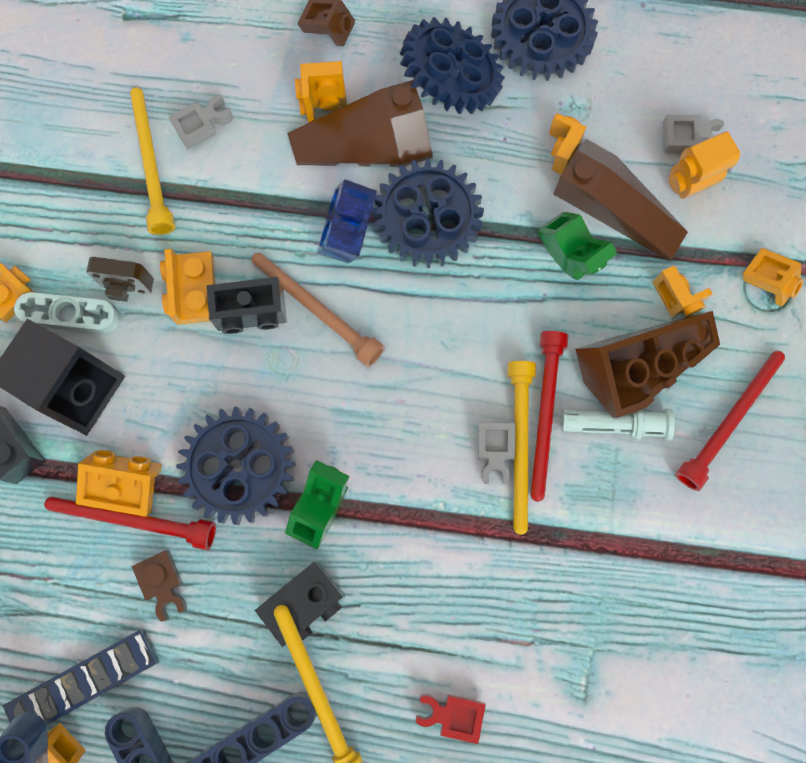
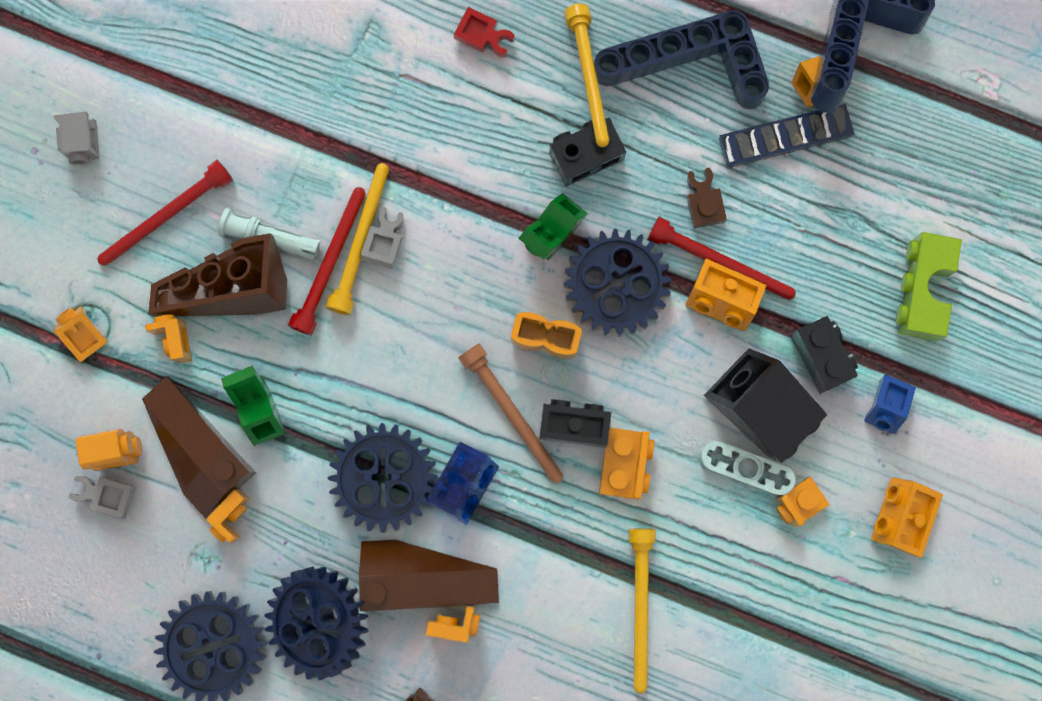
camera: 165 degrees left, 5 degrees up
(120, 277) = (689, 482): dark brown piece -> none
(196, 124) = (587, 633): light grey plate -> none
(285, 387) = (536, 333): none -> light orange brick

